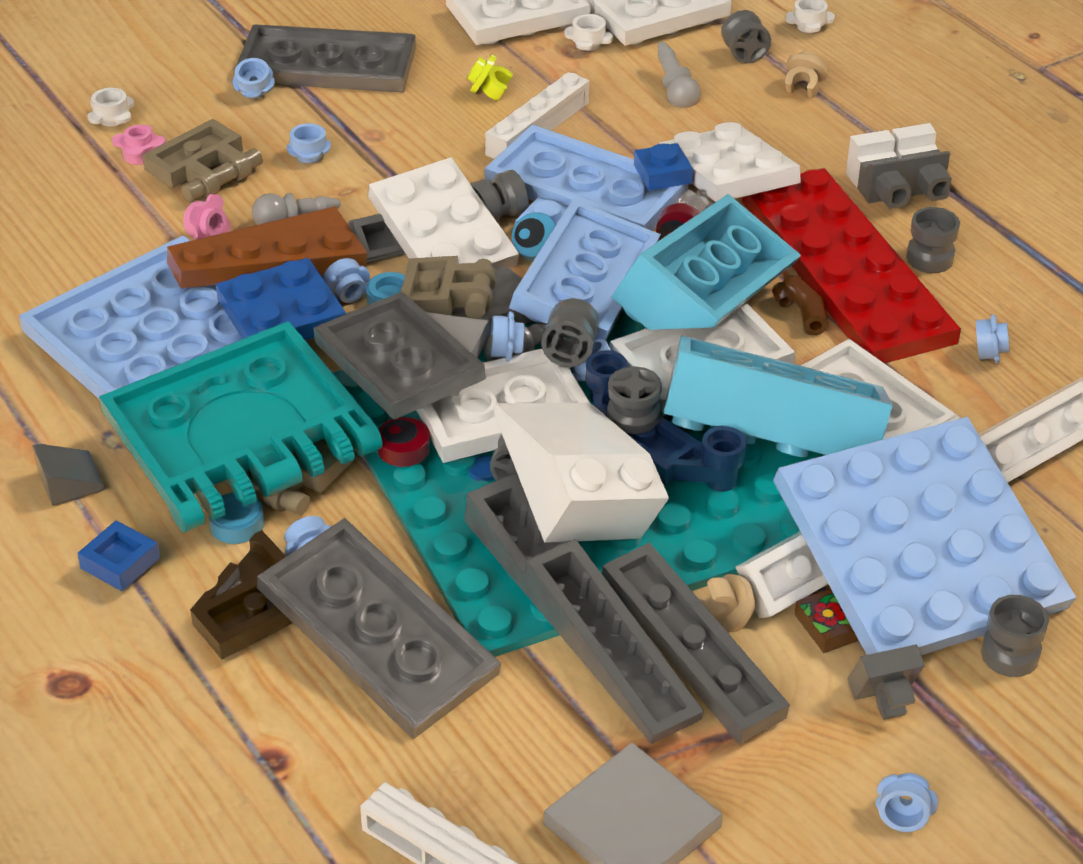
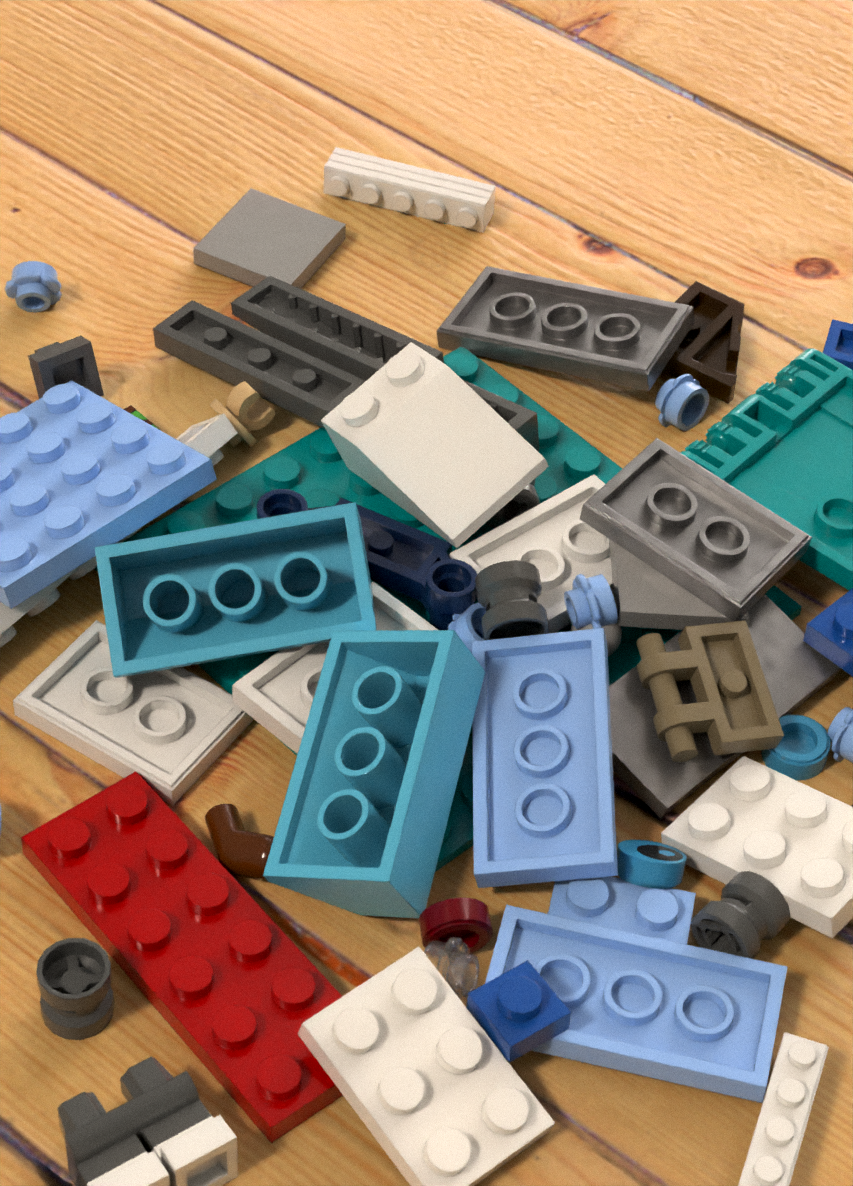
camera: 160 degrees right, 5 degrees up
(634, 399) = (401, 536): dark grey wheel -> none

